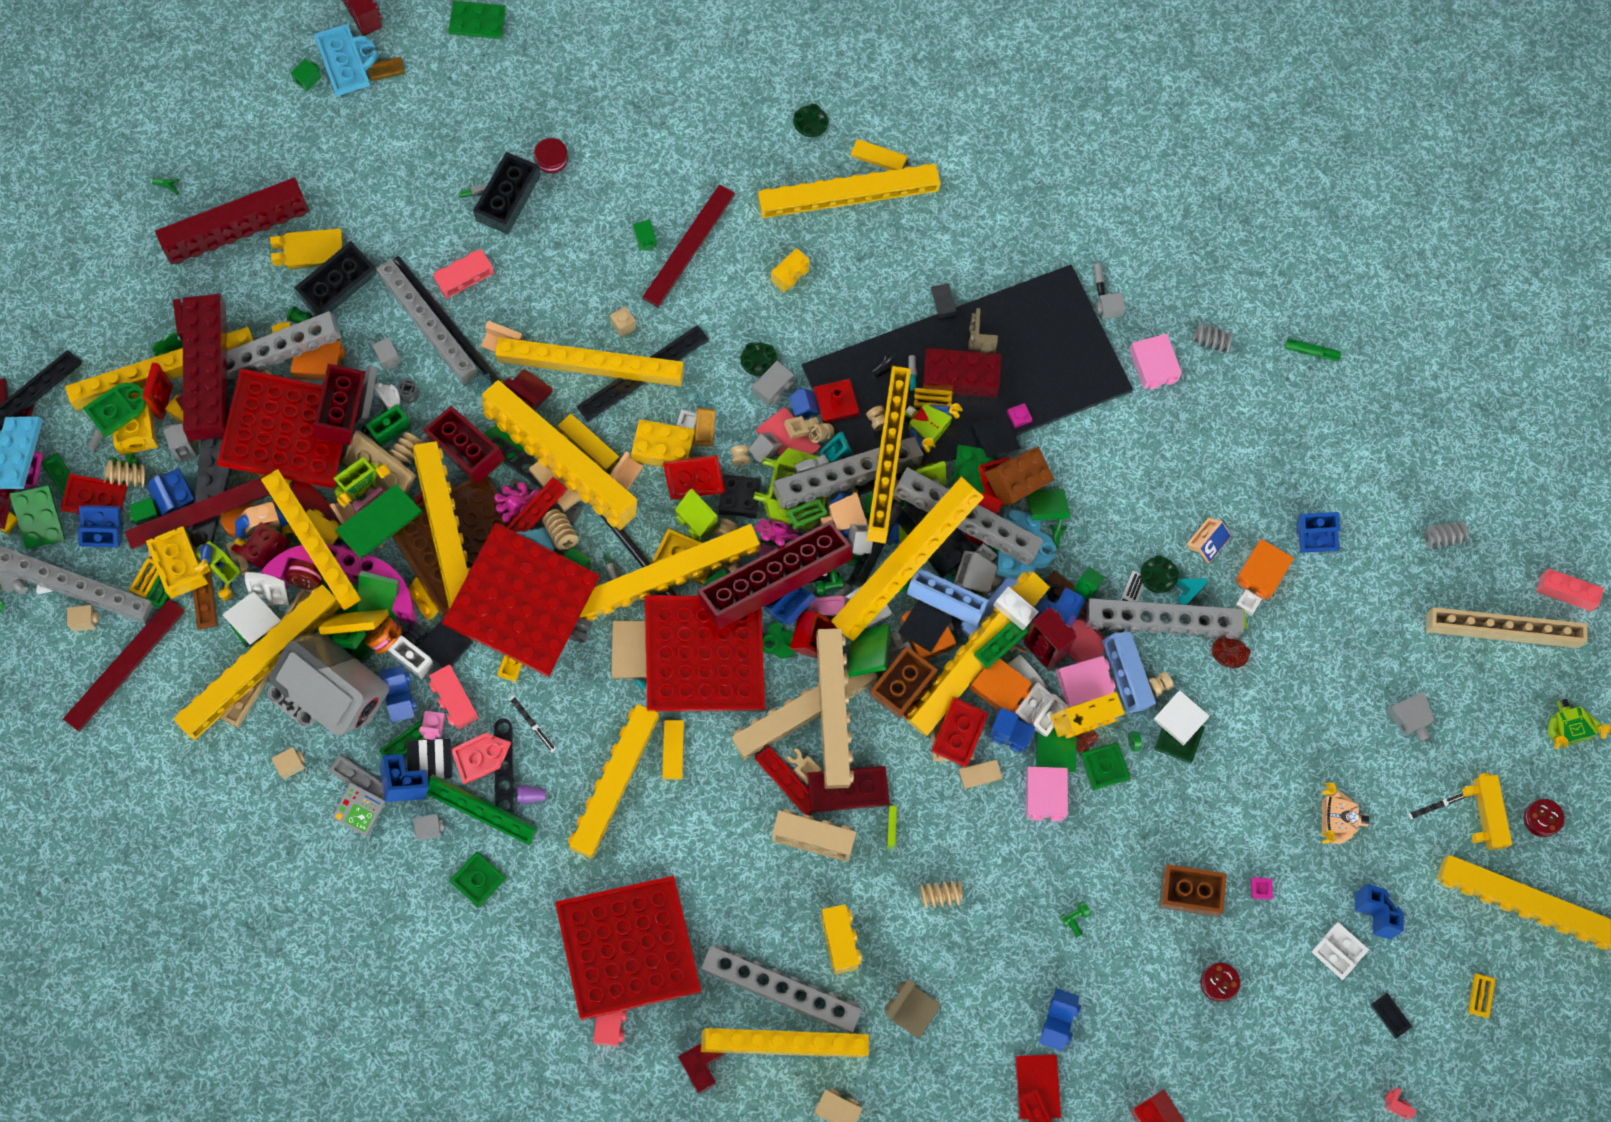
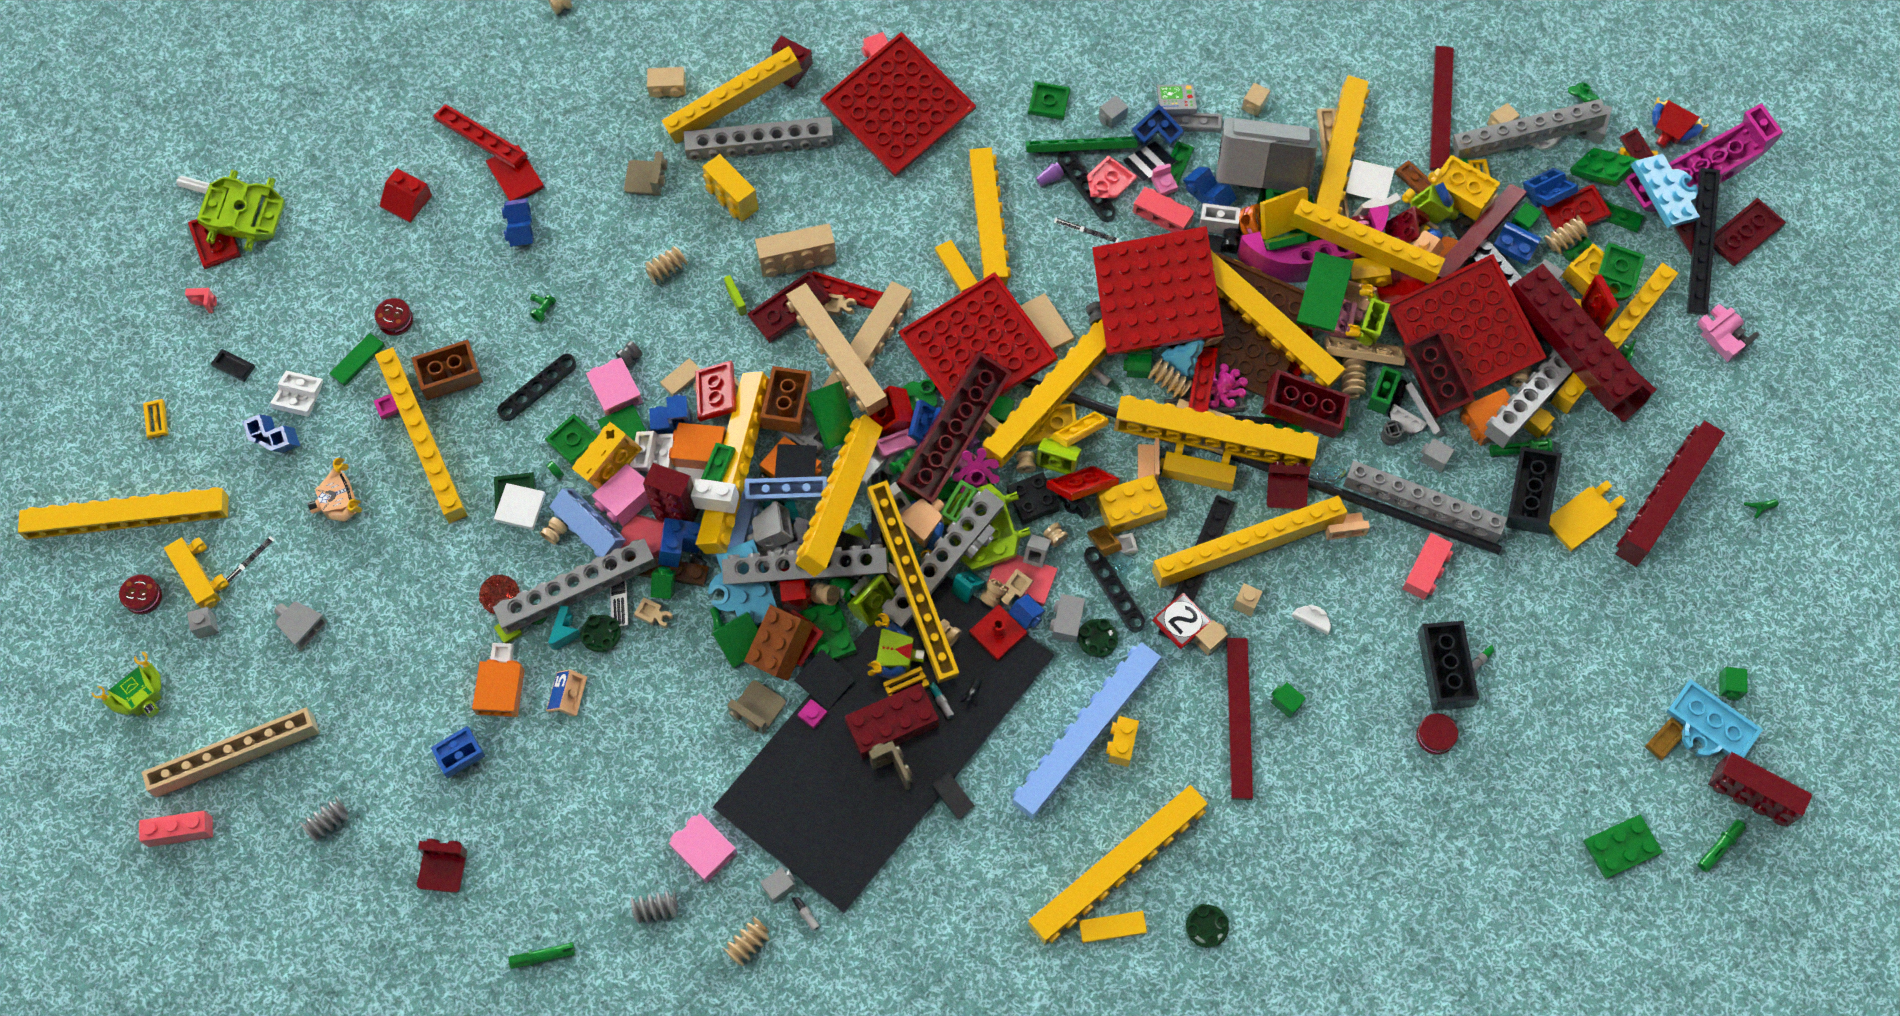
camera: 155 degrees right, 5 degrees down
(69, 330) = (1721, 331): none -> bright pink hips
(578, 287) = (1314, 617): none -> white tile
(663, 529) = (1080, 429): none -> yellow tile
(670, 310) = (1211, 637): none -> tan brick
(686, 332) = (1181, 621): none -> slope
(721, 382) = (1115, 599): none -> black beam
(811, 294) = (1086, 730): none -> light blue brick
(1015, 820) = (629, 353): none -> dark grey wheel
(1062, 445) = (756, 707): none -> dark tan bracket
(1109, 569) = (650, 612): none -> tan plate
(1126, 837) = (540, 378): none -> black beam
(1155, 276) = (747, 941): none -> tan piece
(1241, 841) = (421, 435): none -> yellow brick
(1271, 957) = (357, 359): none -> green tile
(1365, 452) = (441, 865): none -> dark red bracket
(1496, 759) = (202, 622): none -> light grey brick

